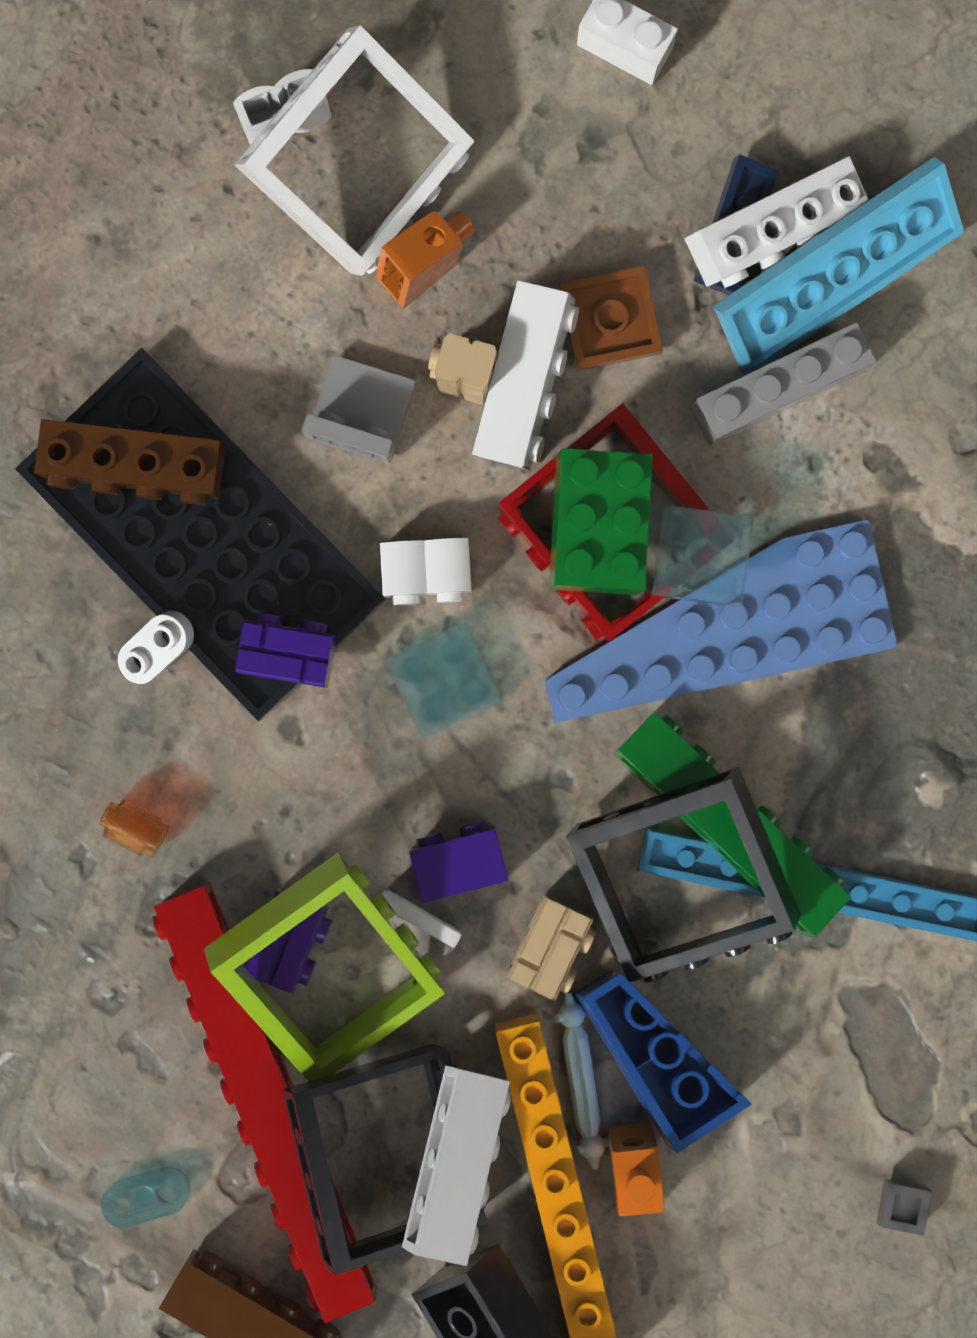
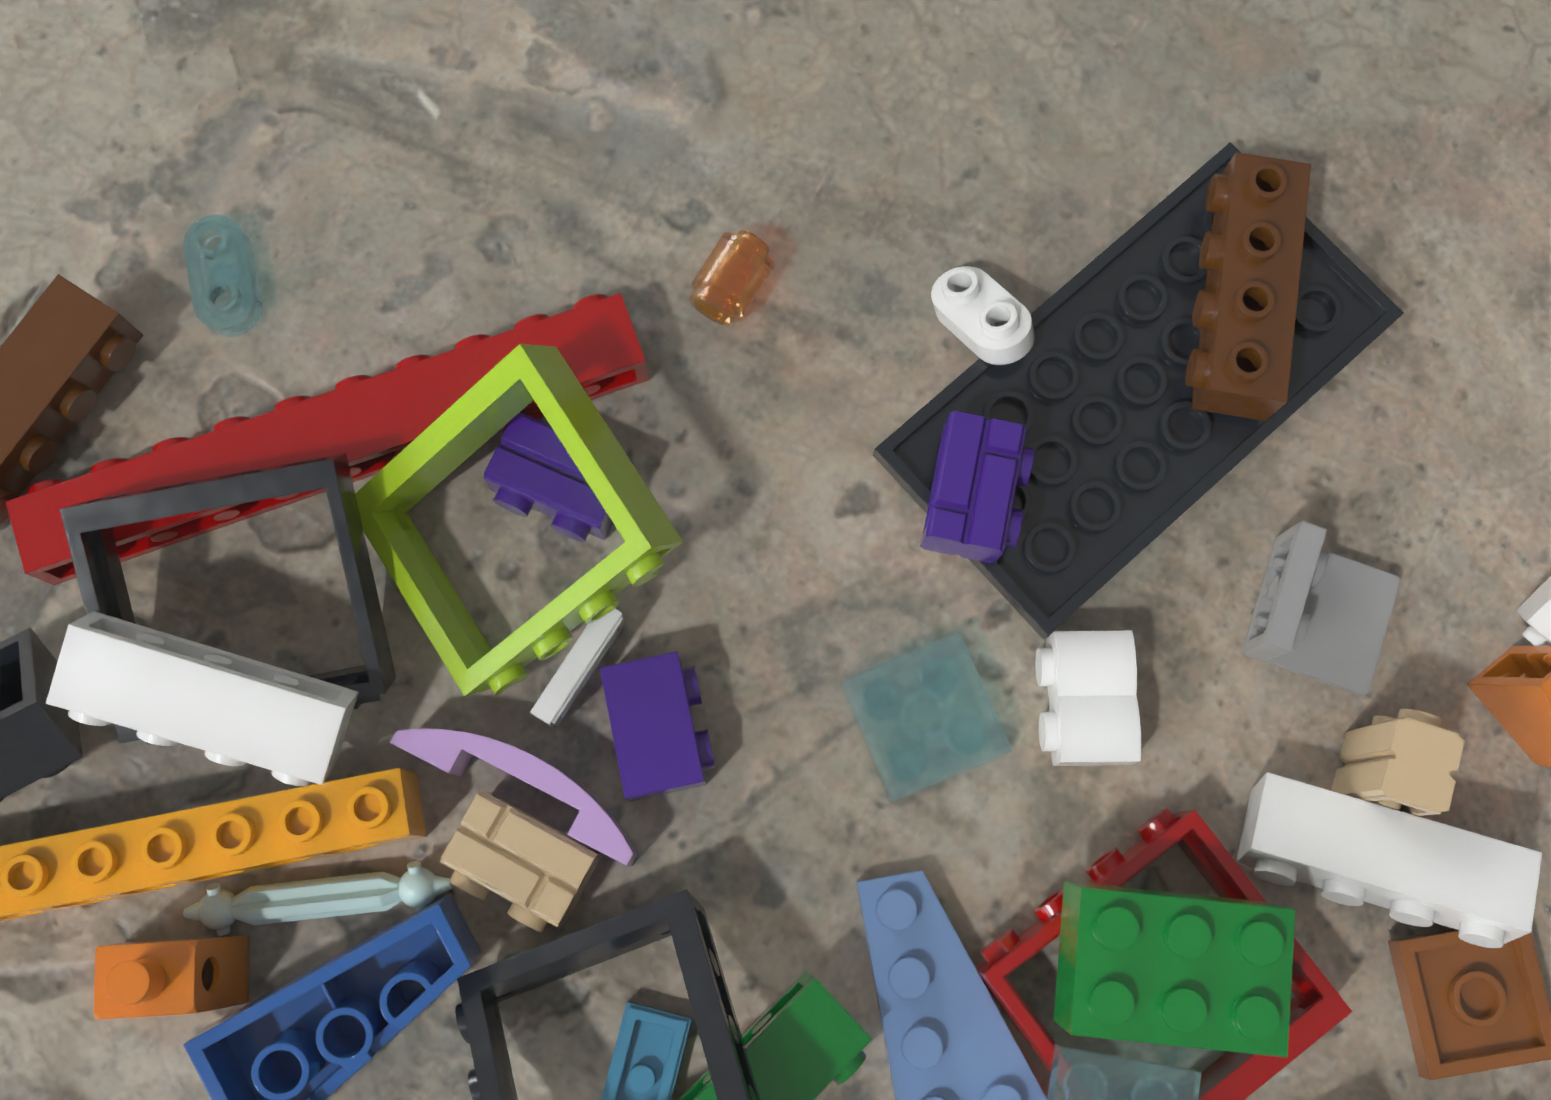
camera: 85 degrees right, 10 degrees down
(524, 899) = (454, 749): none -> lavender slope

